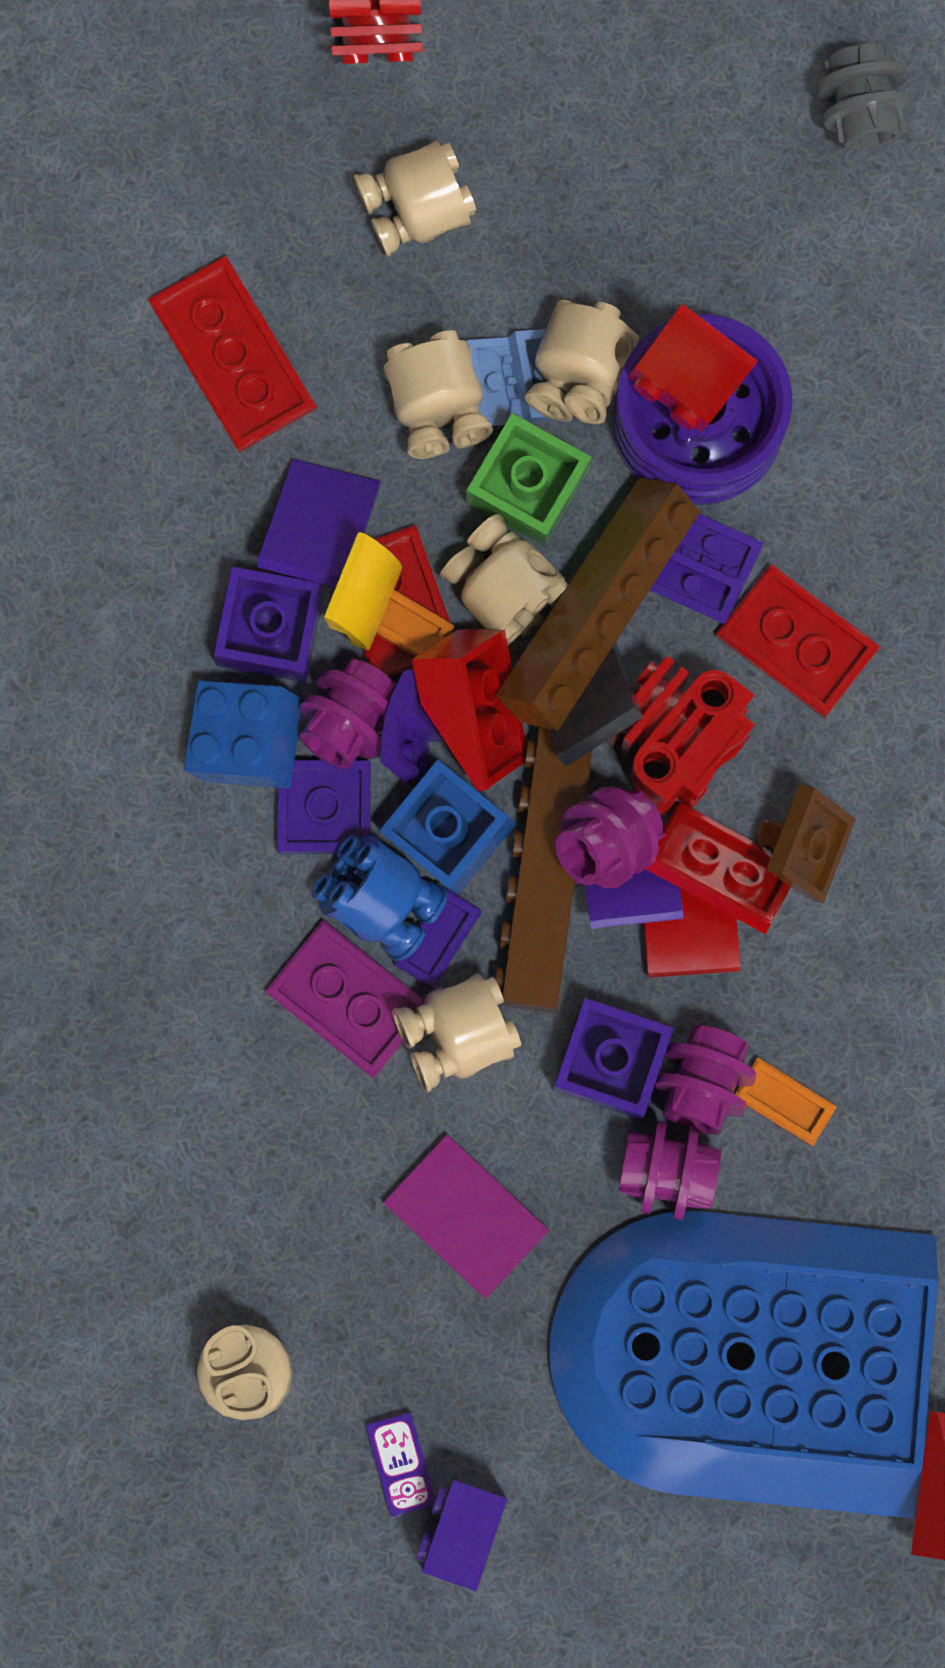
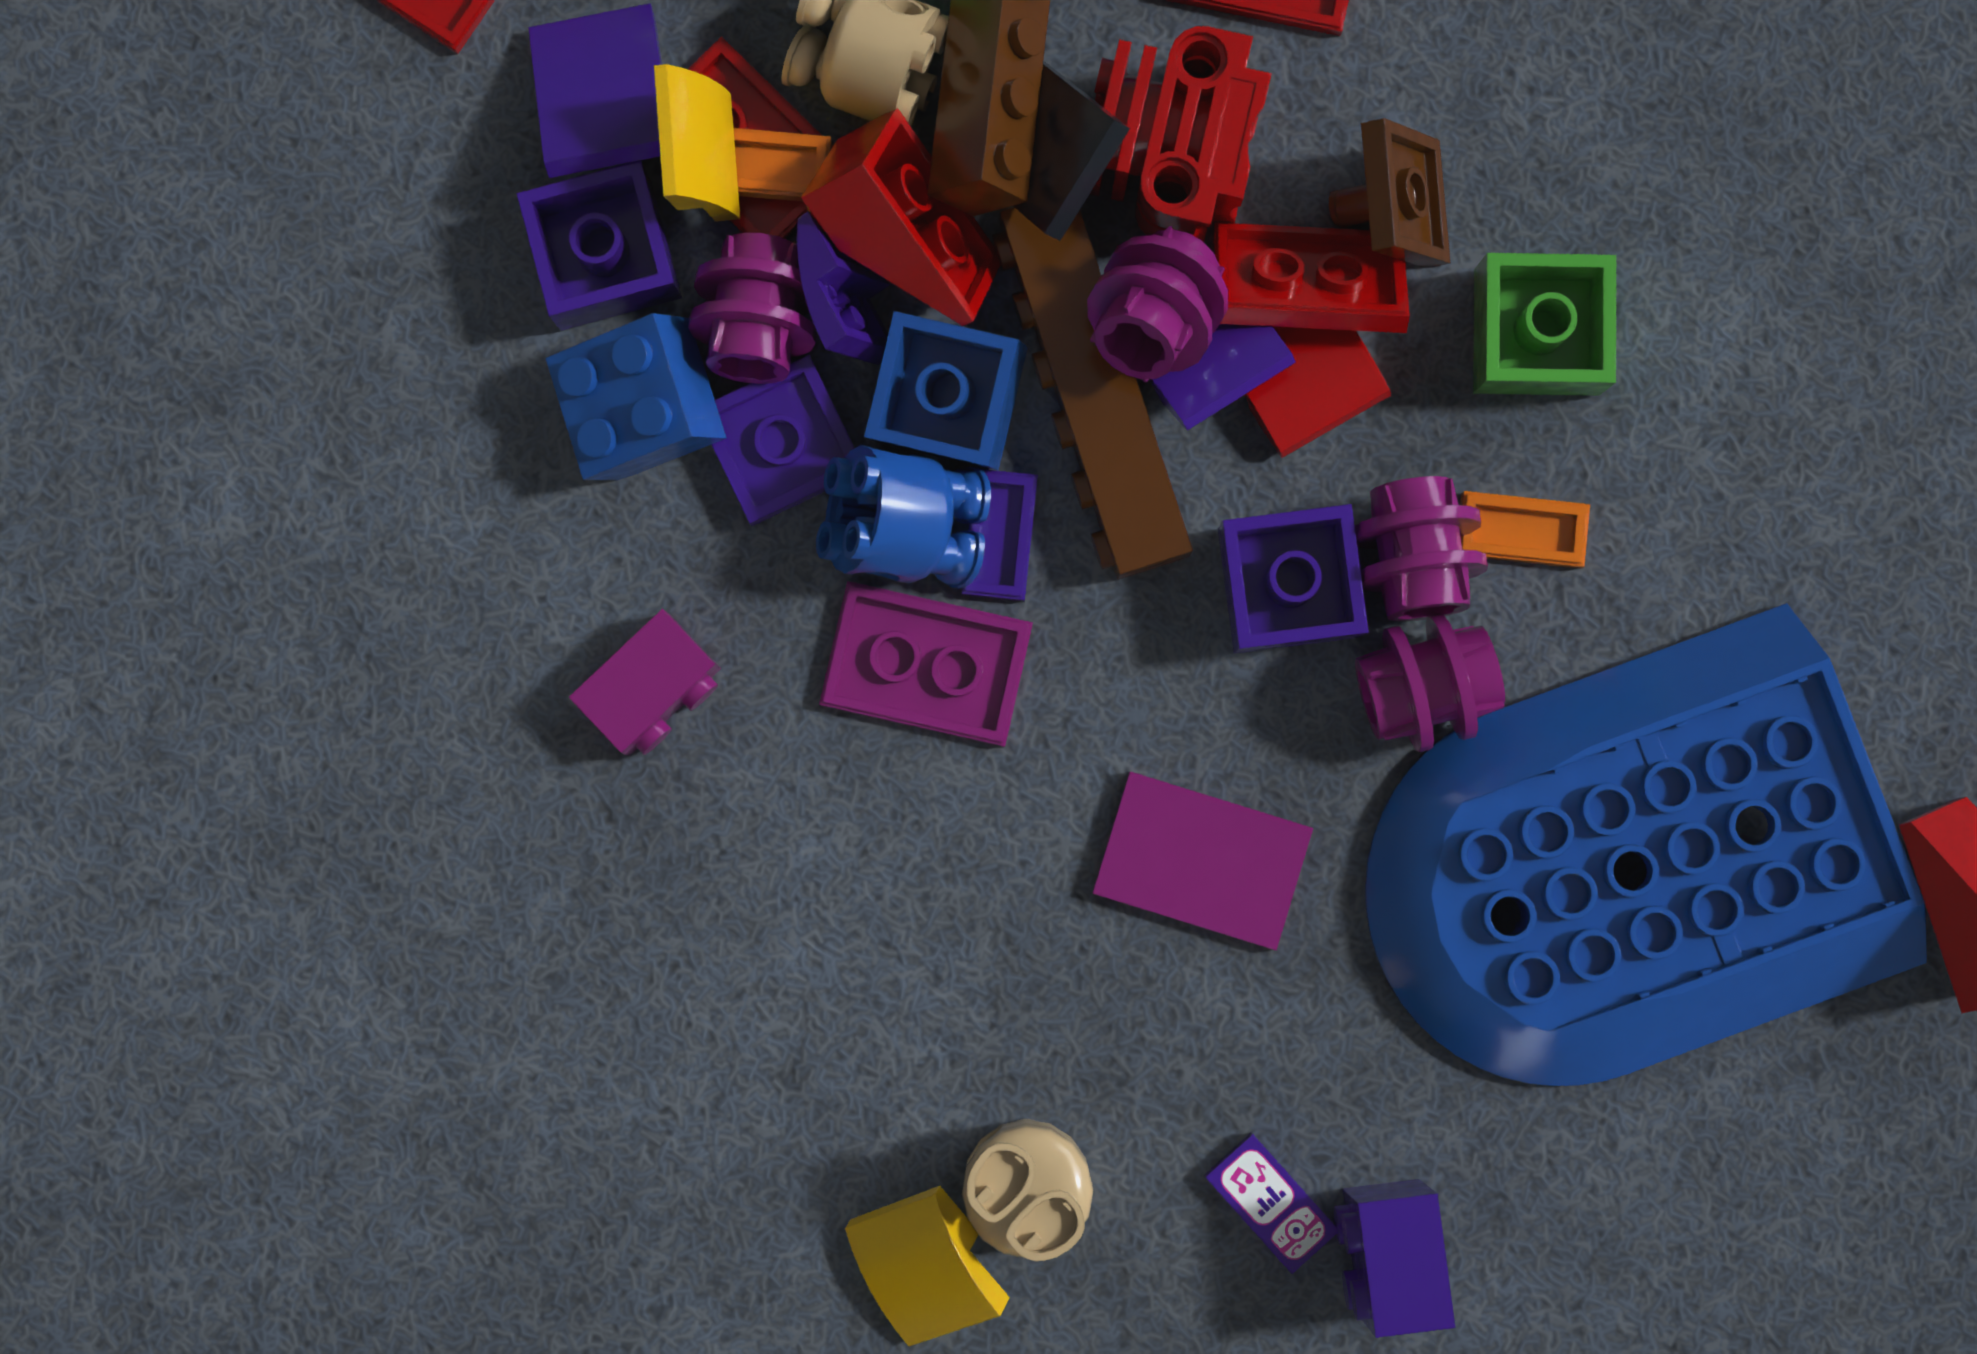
camera: 20 degrees left, 5 degrees up
(151, 1390) = (923, 1266): none -> yellow slope
(159, 924) = (647, 685): none -> magenta brick
(463, 1028) = (1089, 631): tan piece -> none
(861, 973) = (1544, 324): none -> bright green brick

